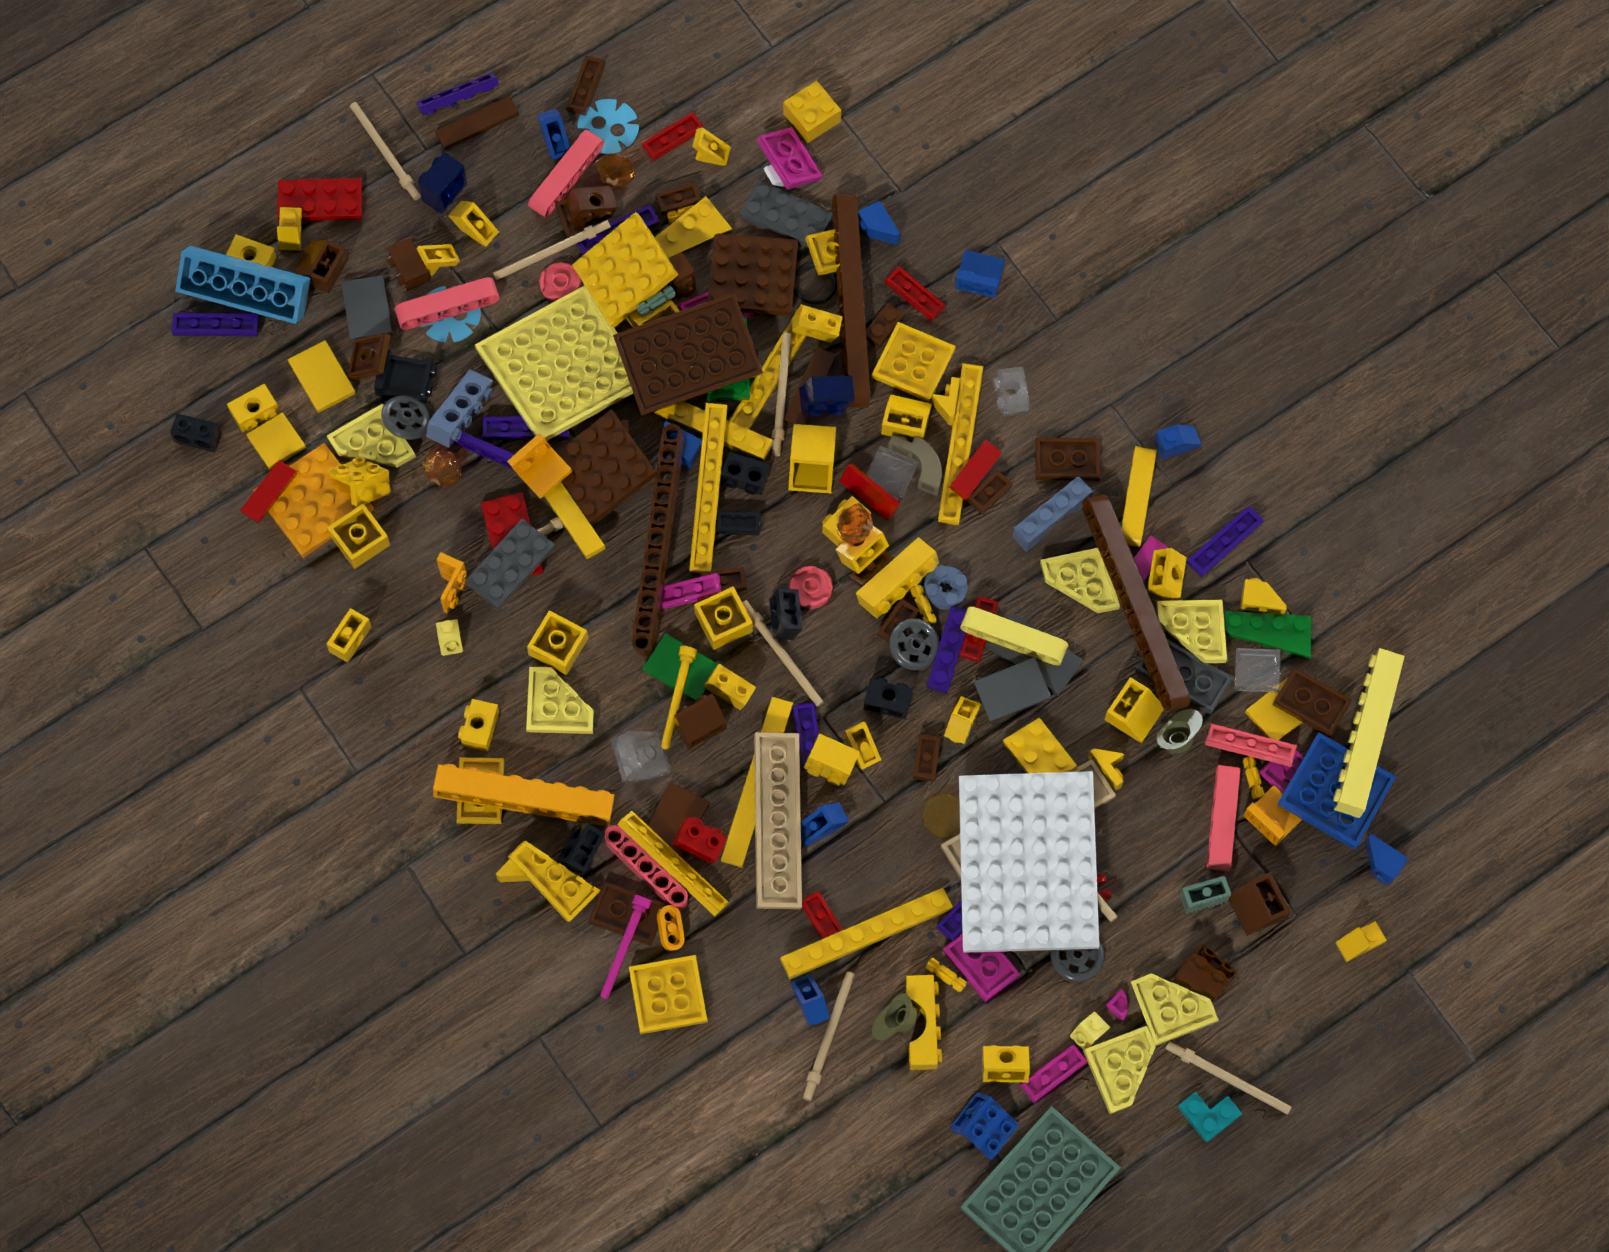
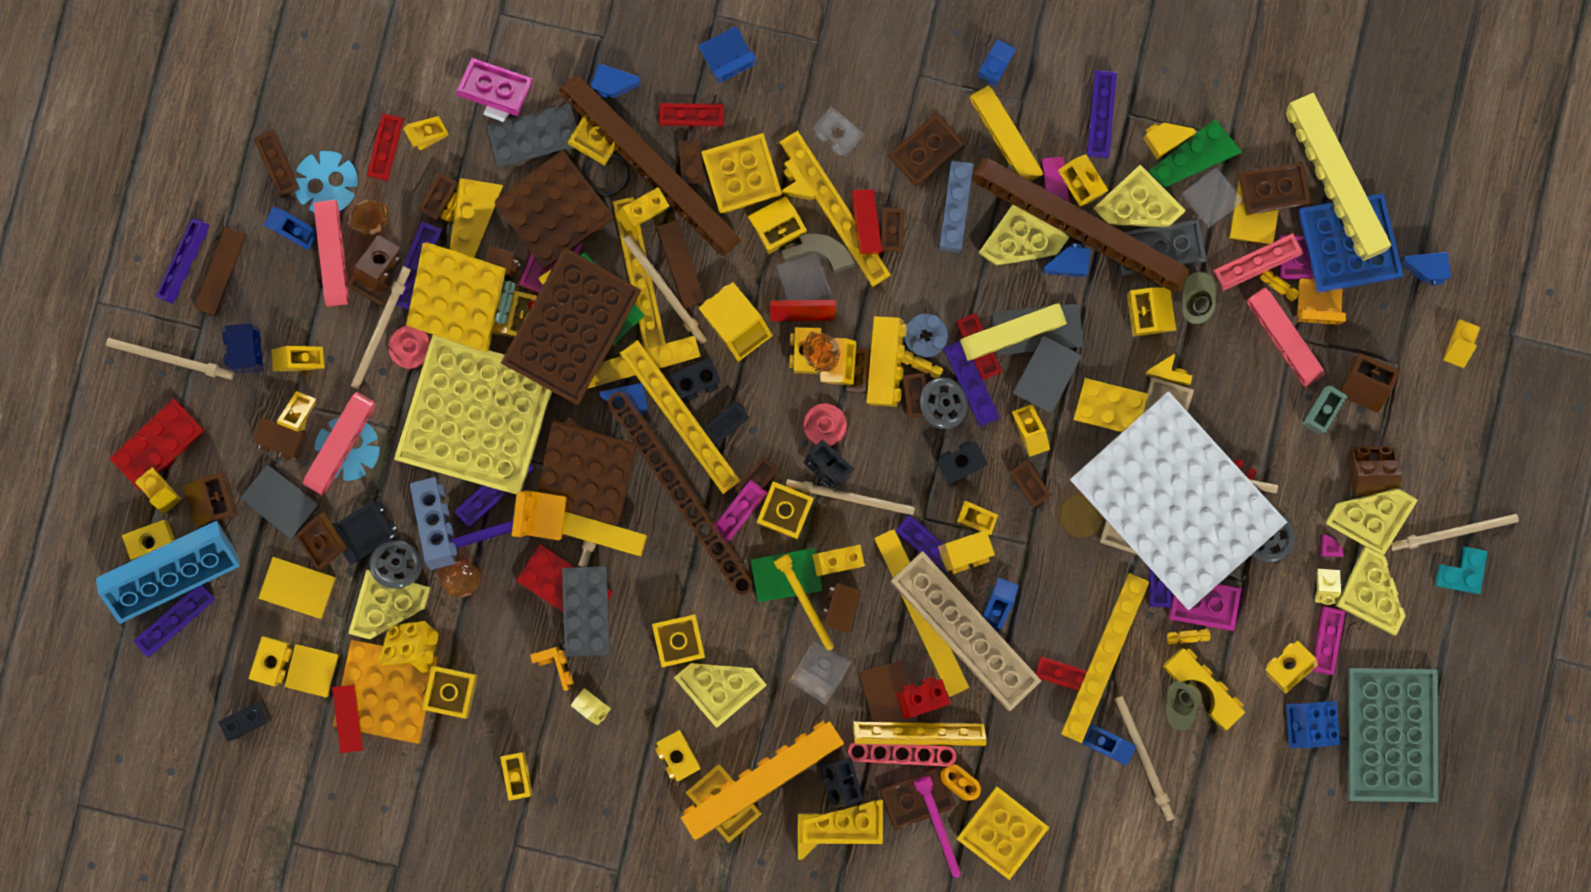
camera: 45 degrees left, 15 degrees up
(812, 111) = (477, 31): yellow brick -> none
(826, 395) = (705, 263): clear blue brick -> none
(1103, 624) = (1071, 262): none -> blue slope

